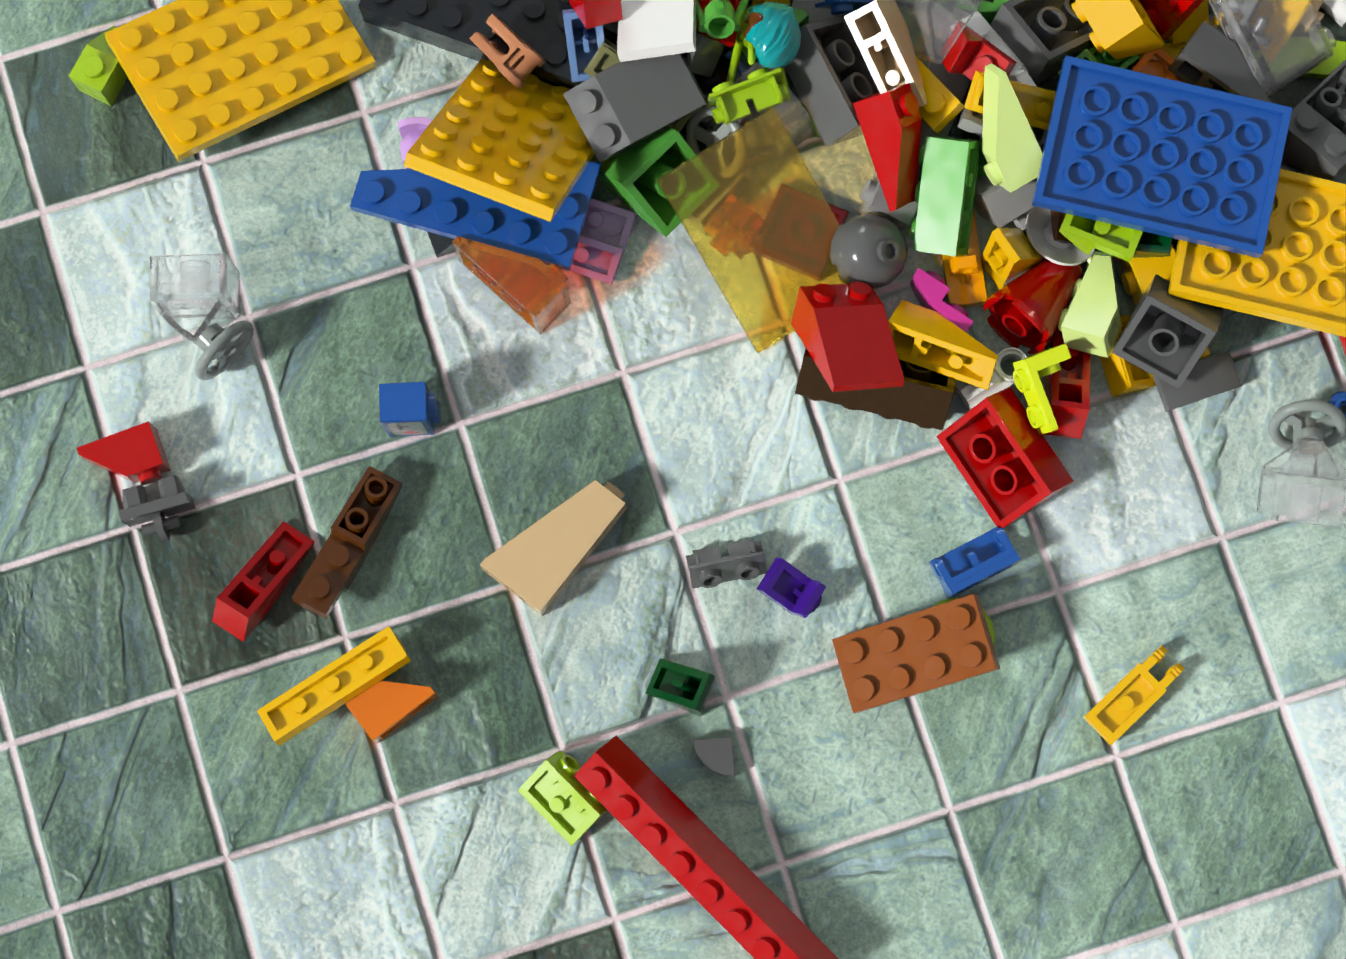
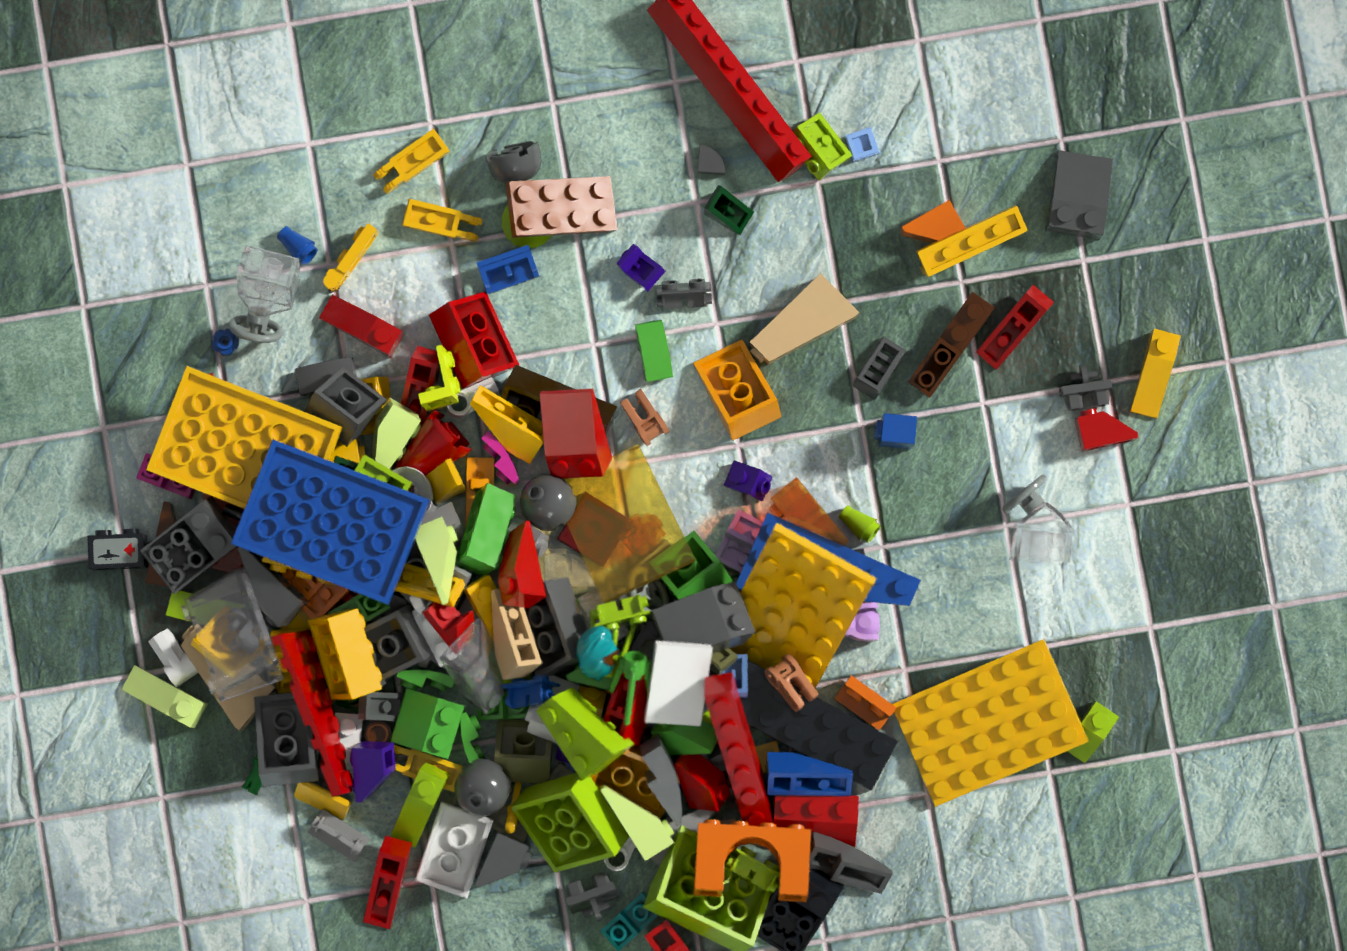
camera: 175 degrees left, 5 degrees up
(63, 546) = (1155, 372): none -> yellow slope
(190, 779) = (1080, 195): none -> dark grey slope
(408, 57) = (865, 703): none -> orange bracket
(444, 286) = (861, 525): none -> lime cone
(455, 470) = (865, 385): none -> dark grey slope
(506, 809) = (861, 144): none -> light blue tile
(603, 322) = (748, 480): none -> dark purple bracket
(634, 442) = (738, 390): none -> light orange slope
(756, 478) = (653, 350): none -> bright green slope
(758, 376) = (649, 427): none -> nougat piece
(835, 168) = (562, 564): none -> clear slope
(989, 708) = (515, 163): none -> dark grey cylinder
(1081, 616) = (439, 220): none -> yellow hinge
(1160, 456) = (362, 325): none -> red slope
(1195, 545) = (350, 258): none -> yellow hinge
(1271, 554) = (297, 245): none -> blue cone

